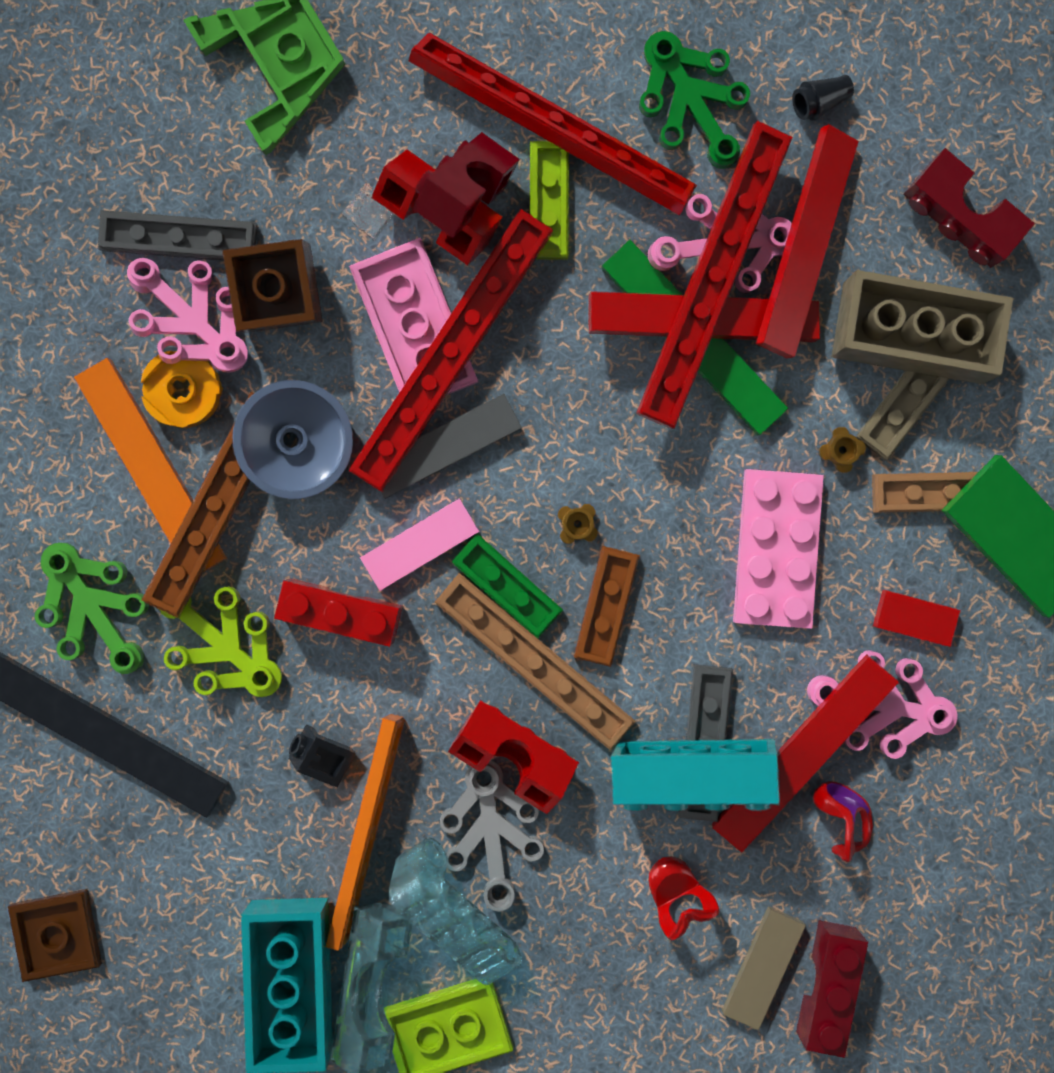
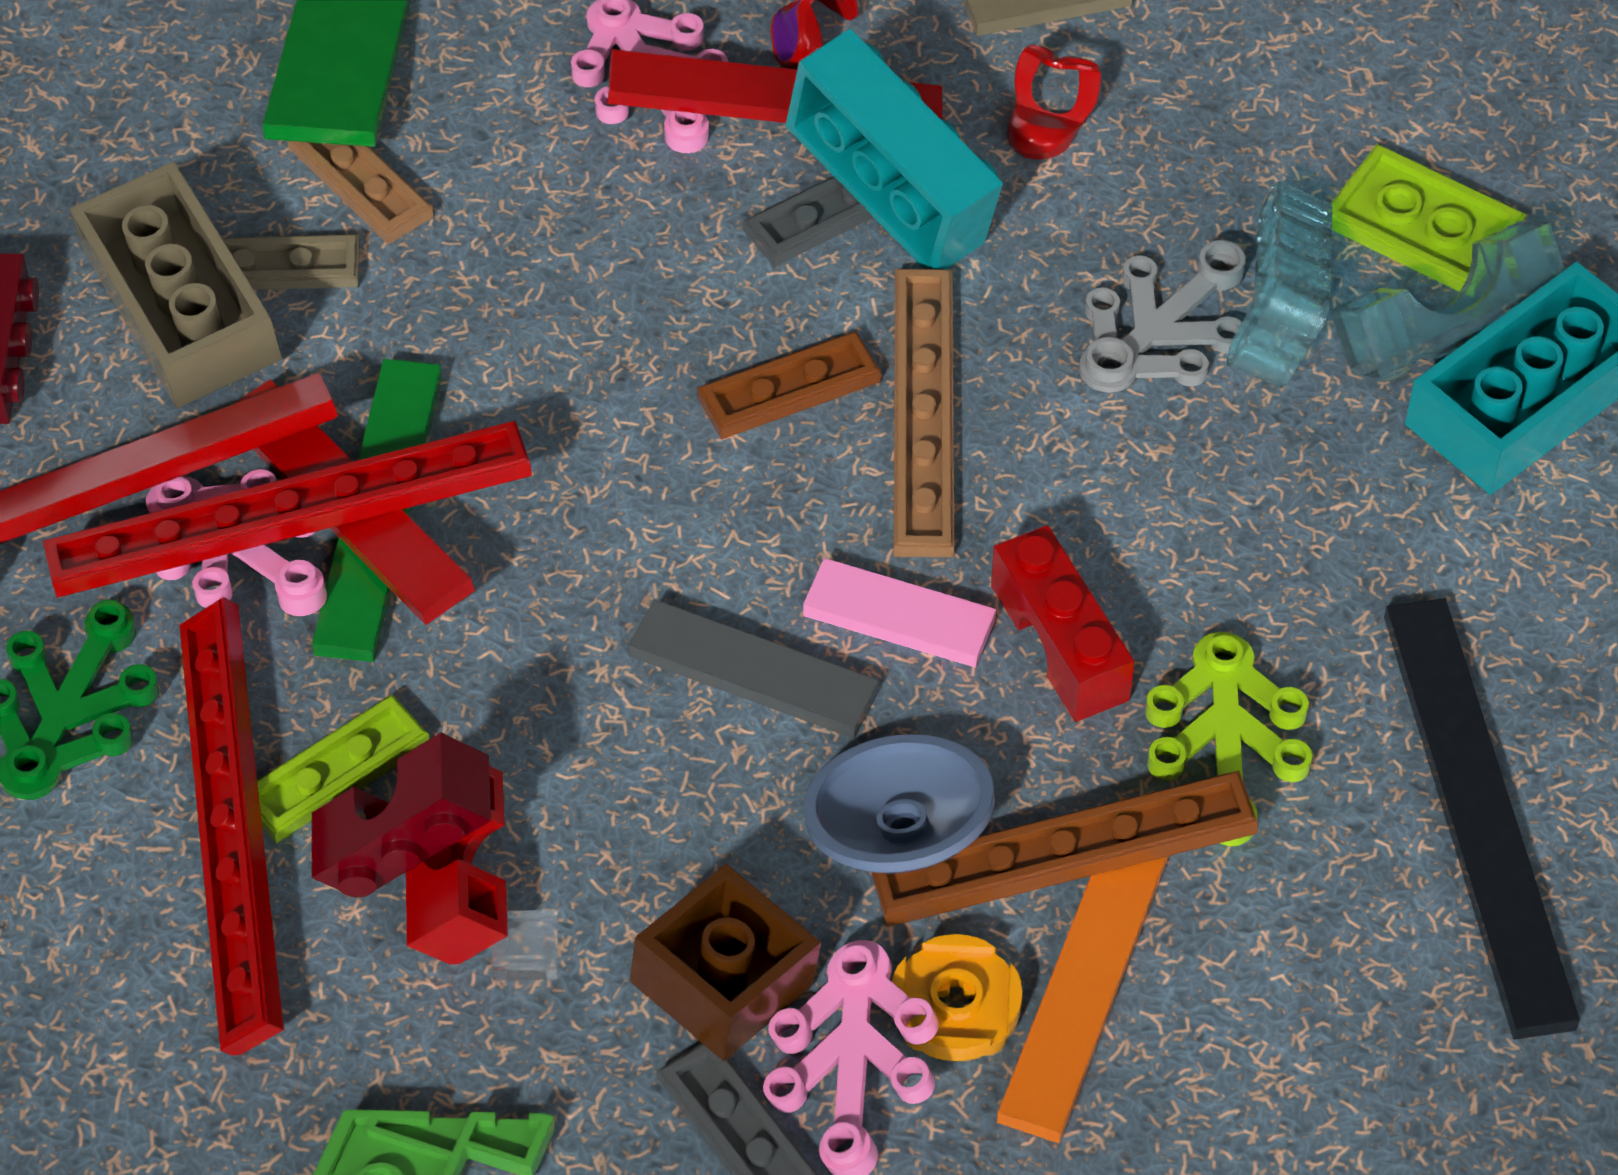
camera: 130 degrees left, 35 degrees down
(88, 603) = (1327, 910): bright green plant -> none
(320, 756) = (1254, 537): black bracket -> none
(365, 830) = (1274, 433): orange tile -> none
(405, 308) = (628, 807): bright pink tile -> none
(451, 350) = (643, 724): red tile -> none
(507, 585) = (861, 493): green tile -> none
(542, 767) = (1052, 372): red arch -> none
(585, 531) = (718, 457): pearl gold plate -> none
(778, 548) = (560, 270): bright pink plate -> none
(853, 447) = (385, 268): pearl gold plate -> none
(916, 618) = (520, 102): red tile -> none

